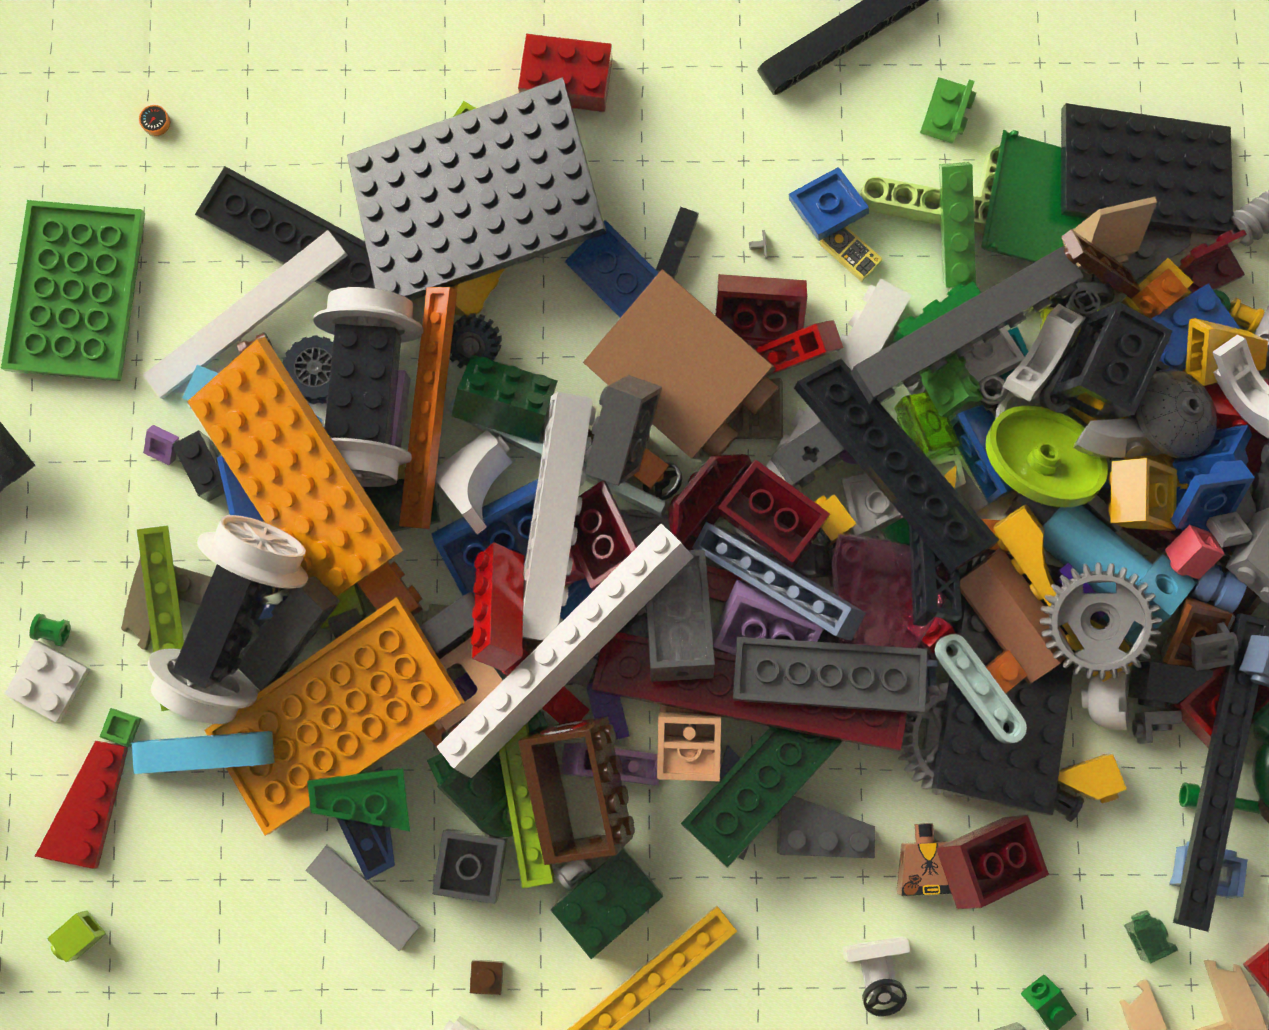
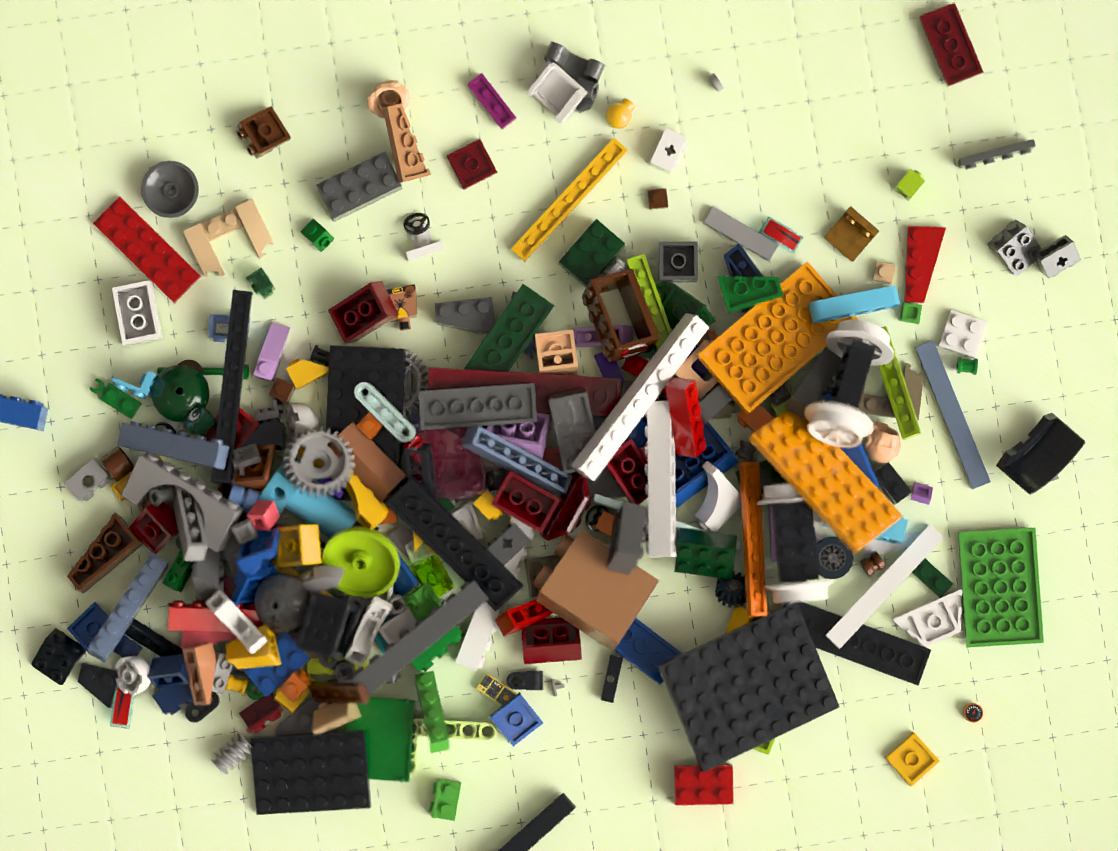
camera: 170 degrees right, 5 degrees up
(90, 560) = (952, 414): none -> sand blue tile
(149, 798) = (884, 272): none -> tan plate
(171, 317) = (932, 578): none -> dark green plate
(182, 257) = (934, 620): none -> white wing
(185, 870) = (851, 234): none -> pearl gold bracket
(194, 518) = (882, 443): none -> light nougat helmet
(256, 69) = (912, 759): none -> yellow tile
(298, 886) = (781, 234): none -> slope
(416, 549) = (746, 450): none -> dark grey wheel
(803, 257) = (529, 680): none -> black piece
(1134, 754) = (282, 390): none -> reddish brown brick
(1143, 819) = (271, 352): none -> lavender slope

